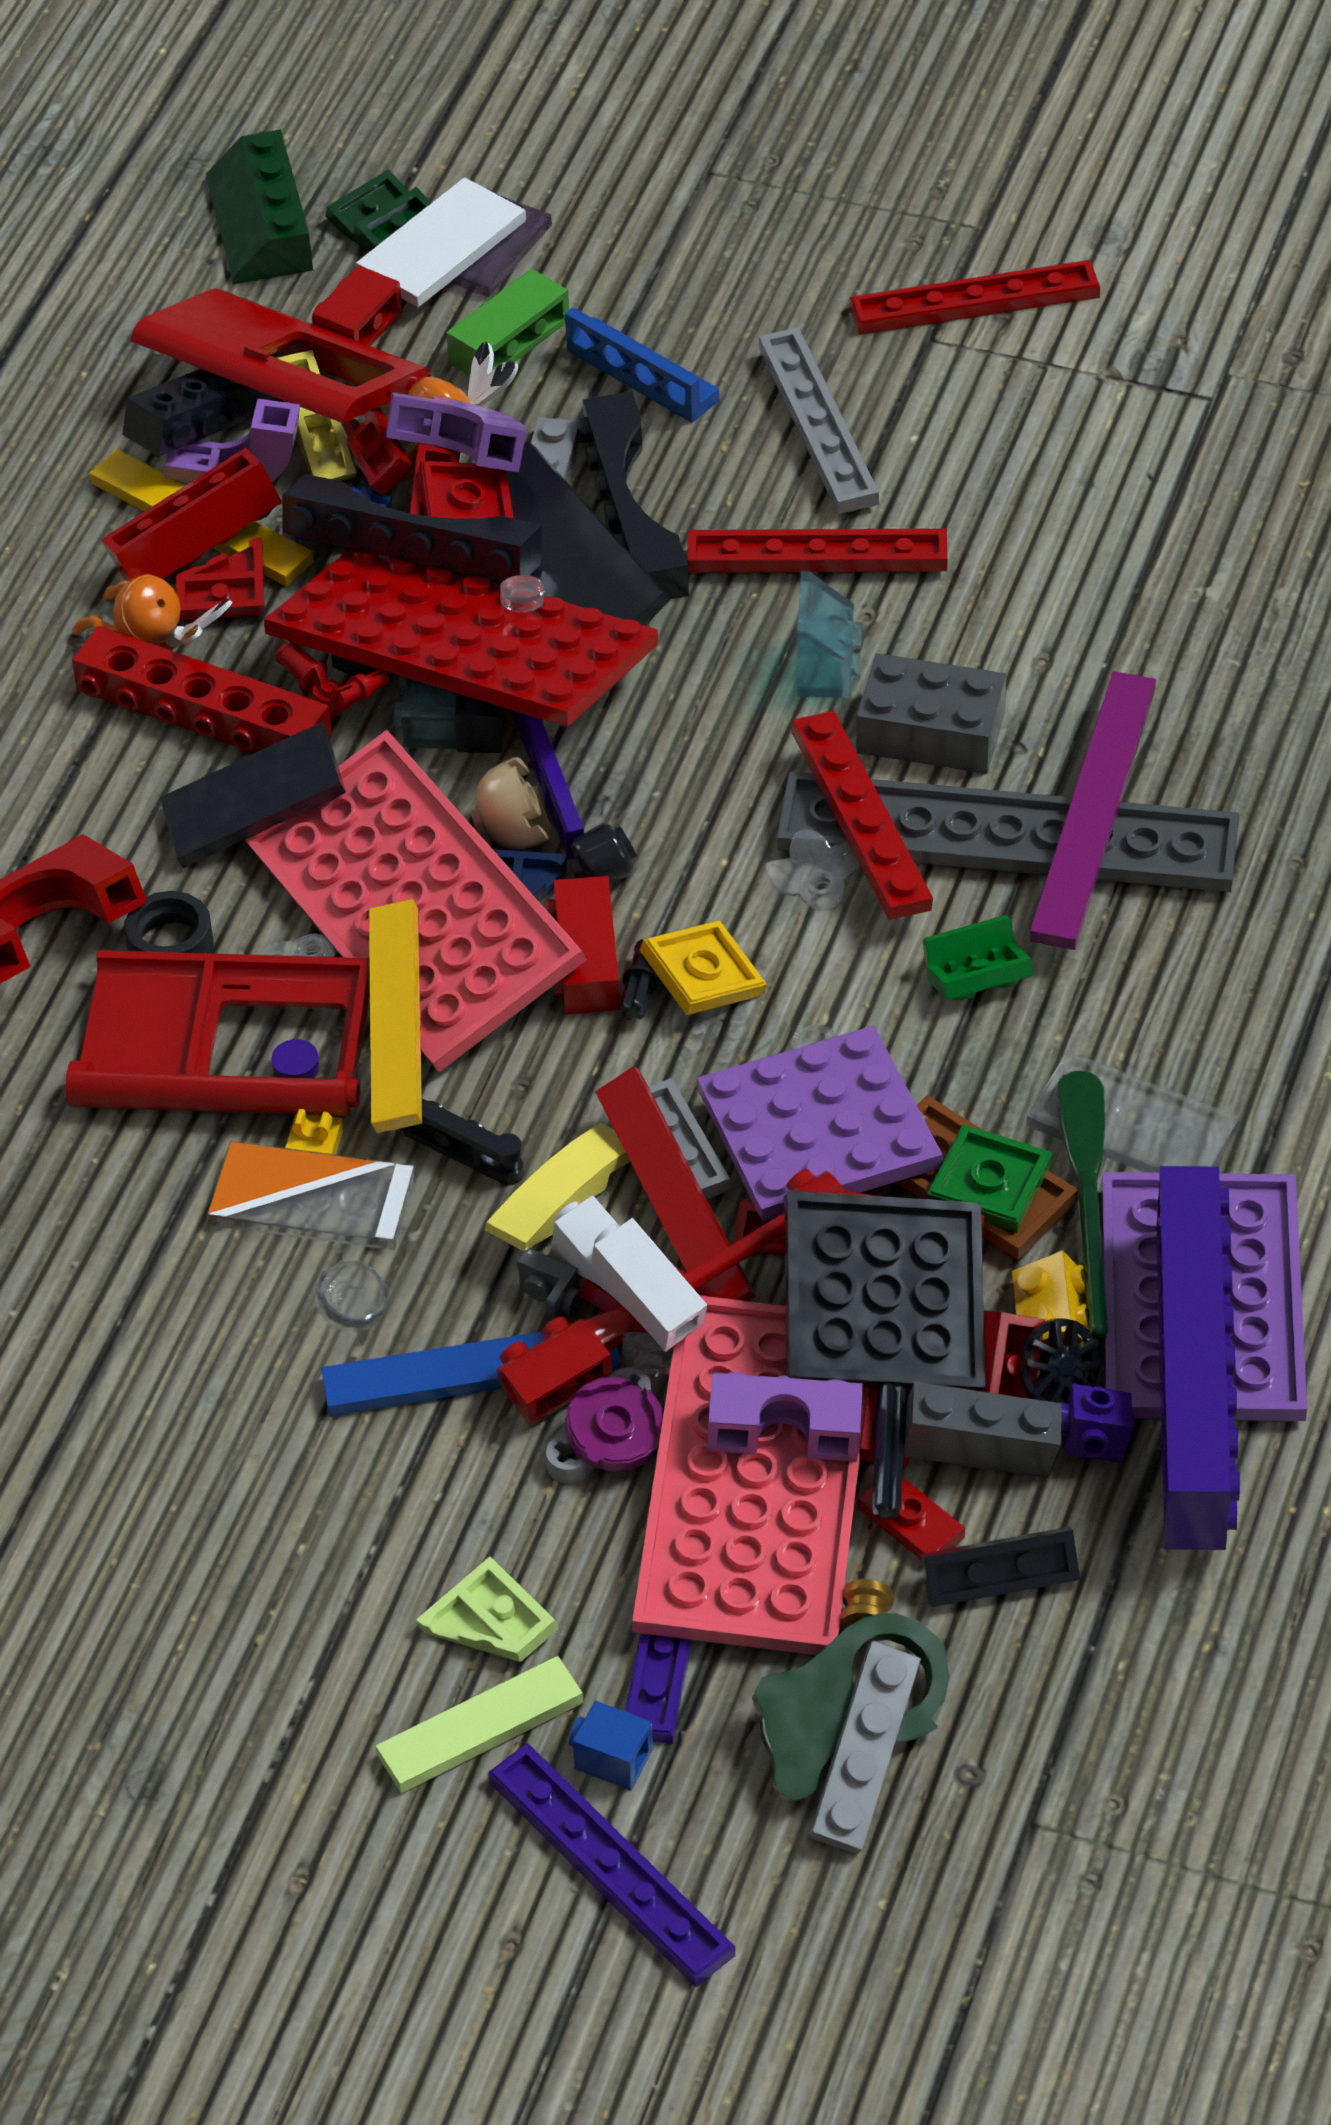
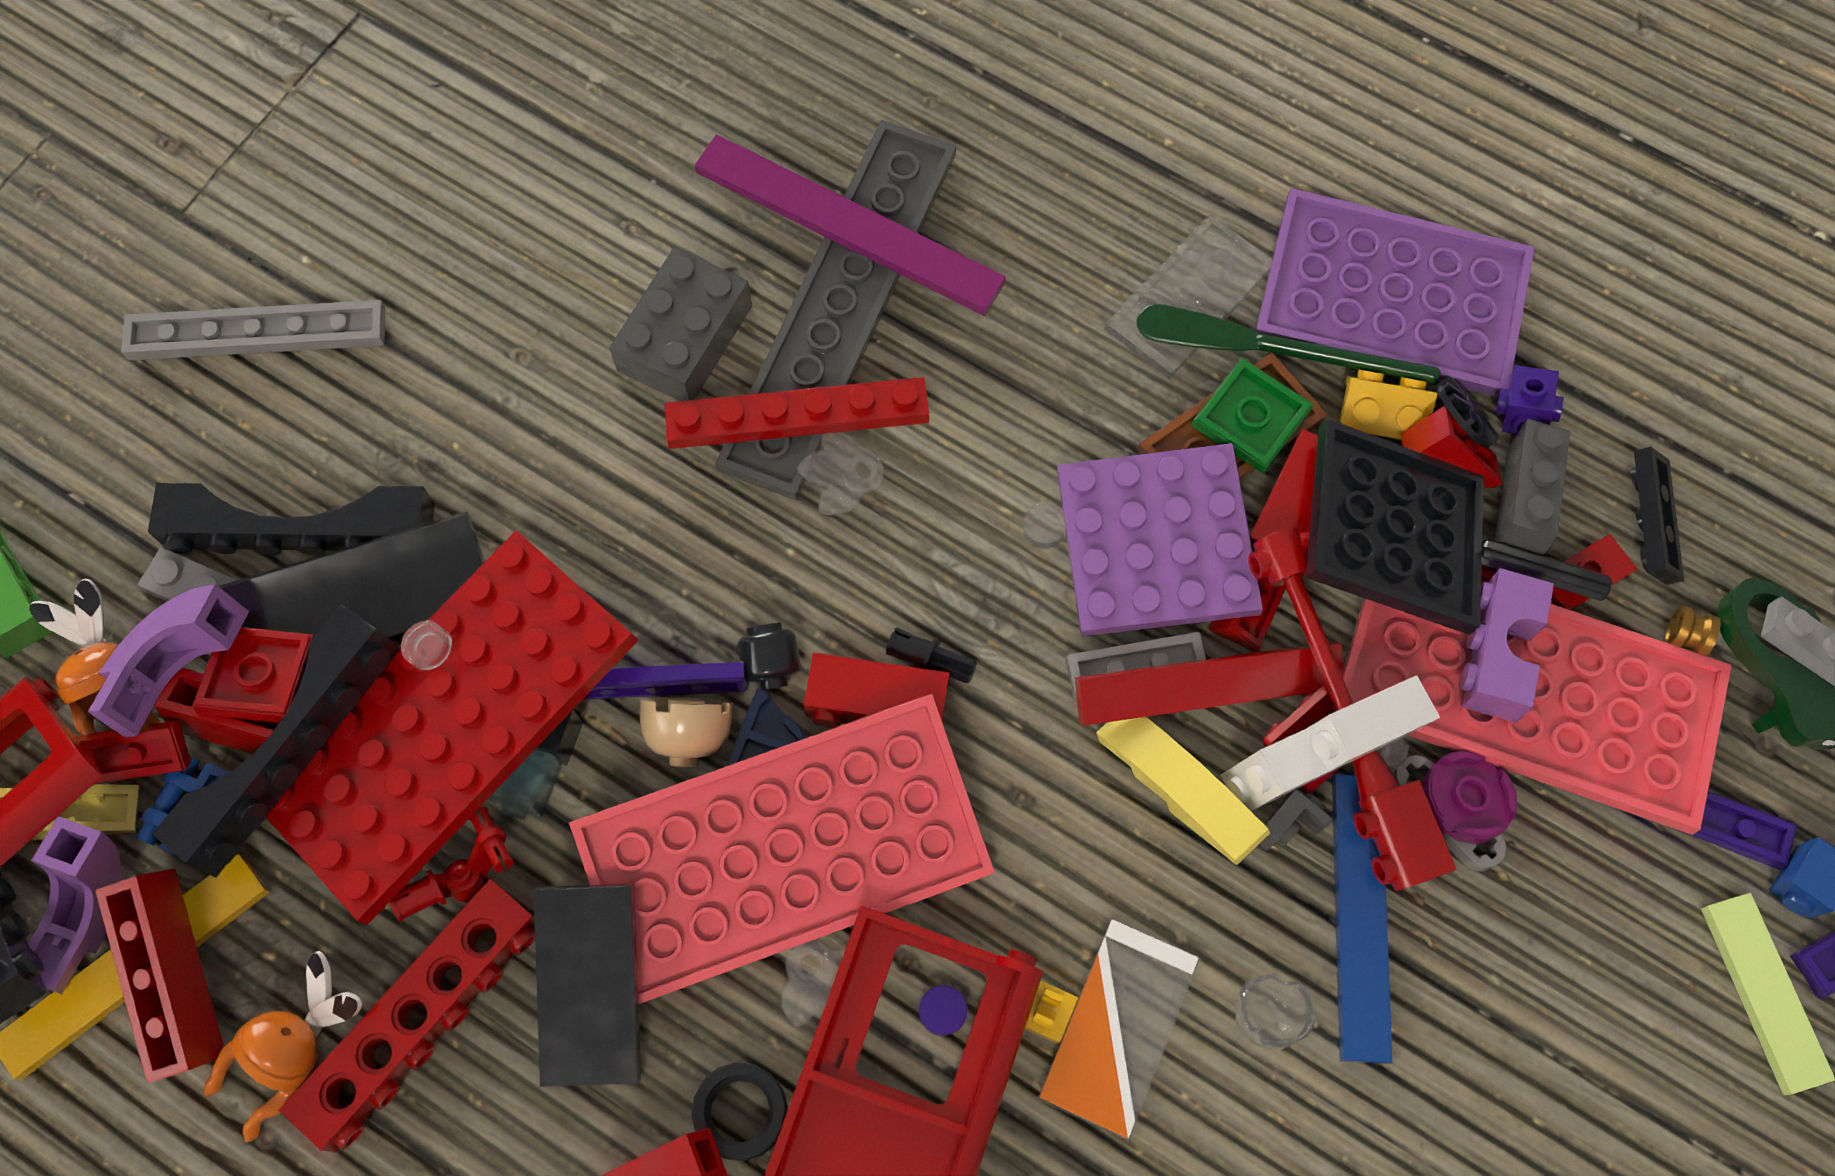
camera: 80 degrees left, 20 degrees up
(223, 578) = (254, 956): red wing -> none
(395, 1016) = (947, 895): yellow tile -> none
(469, 1143) = (1093, 862): black plate -> none
(490, 1615) = (1655, 957): yellowish green wing -> none
(638, 366) = (104, 474): blue fence -> none
(703, 967) = (935, 597): yellow tile -> none
(817, 550) = (430, 374): red plate -> none
(826, 641) = (563, 393): clear light blue slope -> none
(974, 297) = (144, 163): red tile -> none
(975, 958) = (992, 366): green bracket -> none
(1196, 1359) = (1514, 302): dark purple brick -> none

